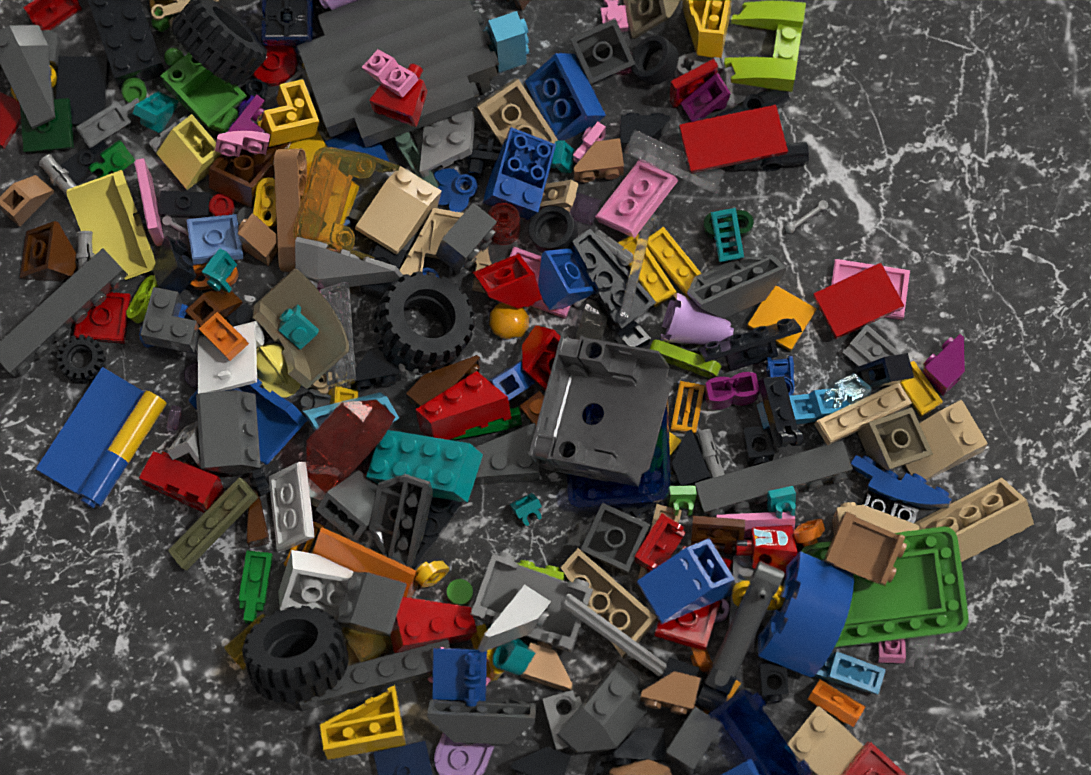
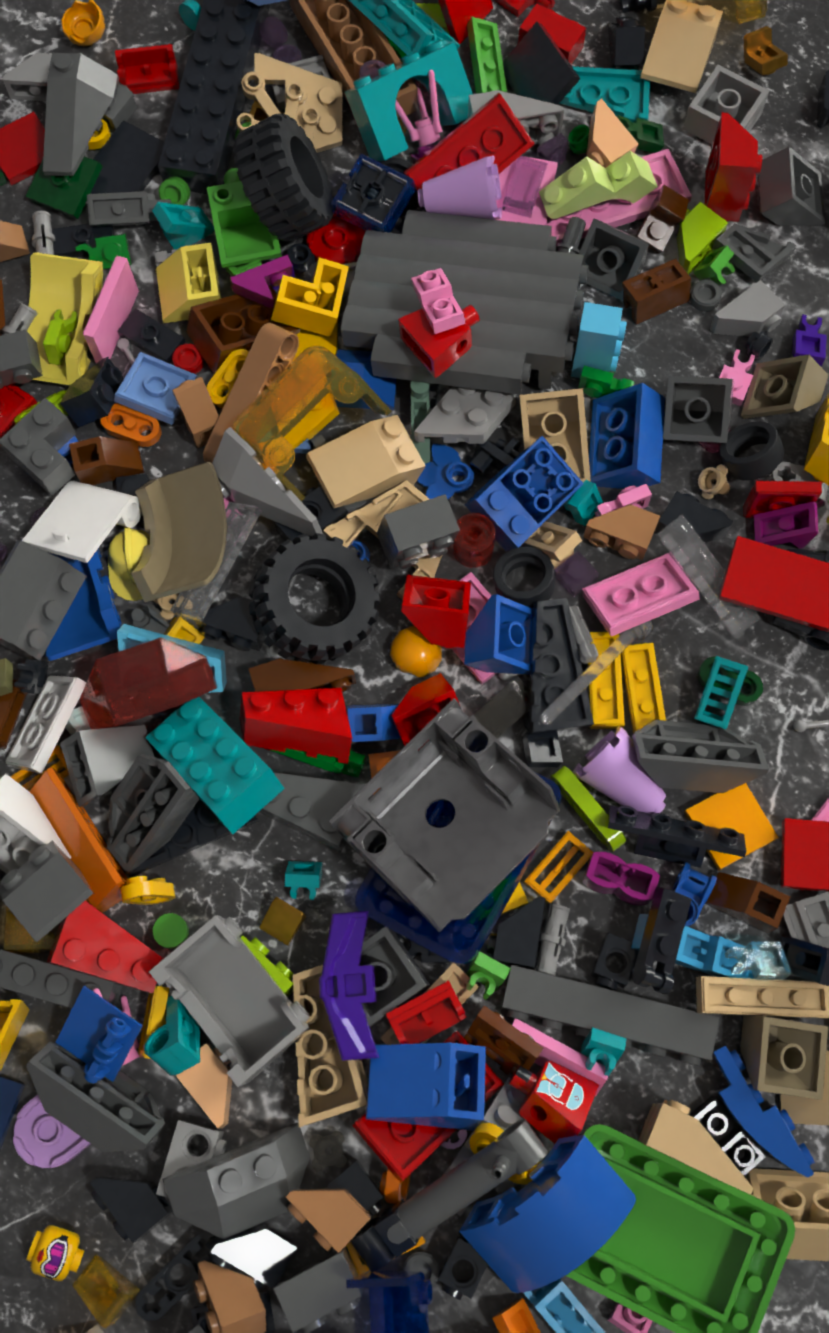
camera: 30 degrees right, 0 degrees up
(122, 243) = (56, 339): none -> lime plate
(218, 270) = (134, 421): teal bracket -> none
(223, 336) = (87, 493): orange plate -> none
(232, 142) = (234, 293): bright pink slope -> none
(297, 327) = (176, 528): teal bracket -> none
(517, 619) = (200, 1010): slope -> none
(525, 67) = (601, 383): none -> green plate
(529, 543) = (282, 921): none -> pearl gold slope
(601, 551) = (348, 985): none -> dark purple plate
(613, 634) = (299, 1097): light grey axle -> none
(634, 94) = (707, 479): none -> tan plate
(809, 532) = (614, 1107): orange plate -> none
(820, 359) = (748, 901): none -> reddish brown slope
(865, 549) = (668, 1181): medium nougat panel -> none

